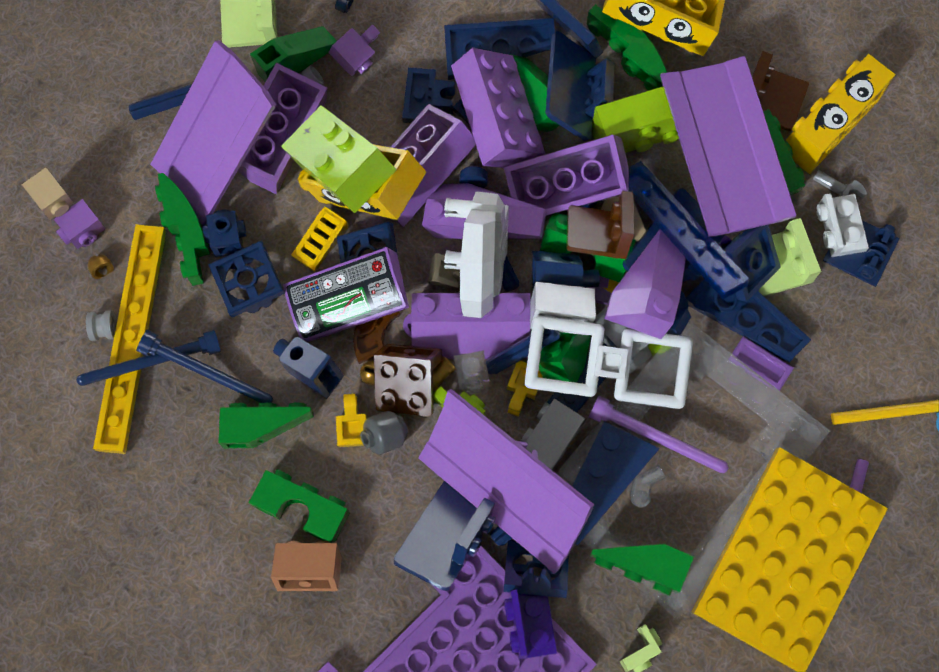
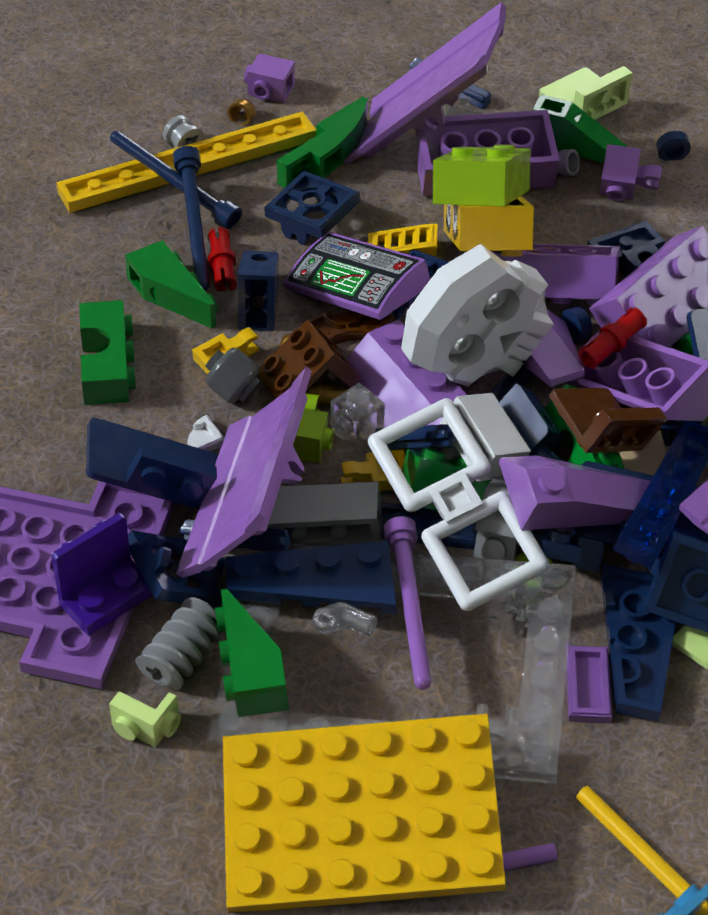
camera: 55 degrees right, 25 degrees down
(48, 194) = (278, 33): tan slope -> none
(224, 232) = (347, 166): dark blue brick -> none
(254, 372) = (222, 259): none -> red pin
(306, 566) = (43, 381): nougat brick -> none
(418, 481) = (205, 435): none -> white tile
(532, 173) = (612, 338): none -> red pin
(599, 597) = (180, 644): none -> light grey piece

